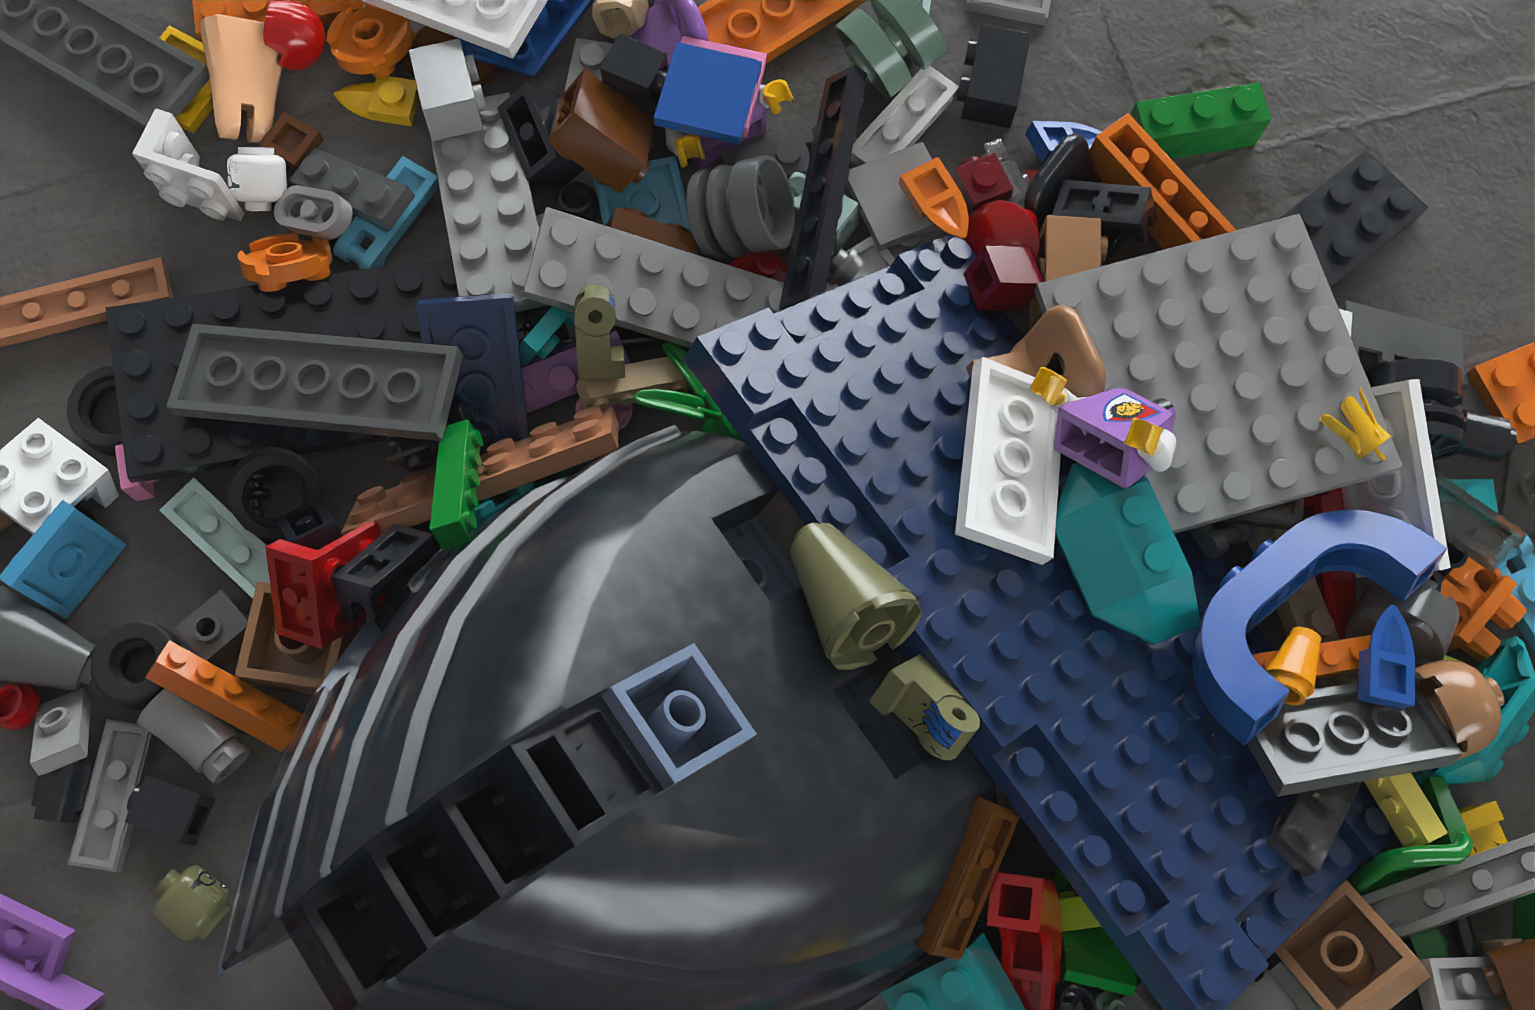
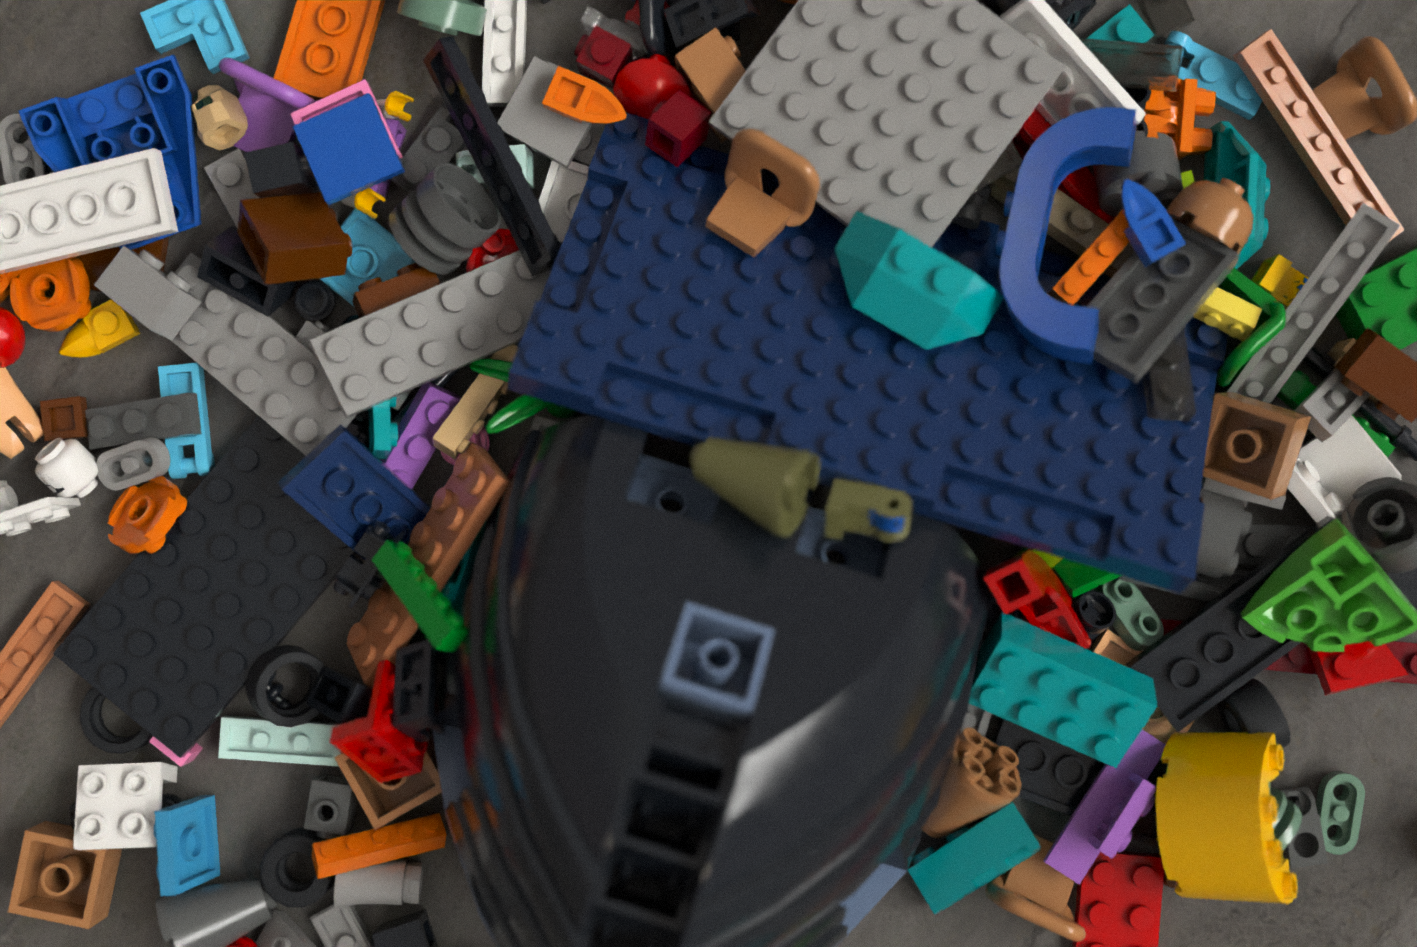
camera: 30 degrees left, 15 degrees up
(316, 381) = (255, 595): dark grey plate -> none
(593, 321) = (415, 399): olive leg -> none
(844, 266) = (554, 204): flat silver plate -> none
(969, 881) = (974, 596): reddish brown tile -> none
(1009, 465) = (792, 281): white plate -> none
(1110, 431) = (848, 208): torso -> none
(1297, 664) = (1087, 279): light orange cone -> none
(1368, 431) = (1029, 67): yellow piece -> none

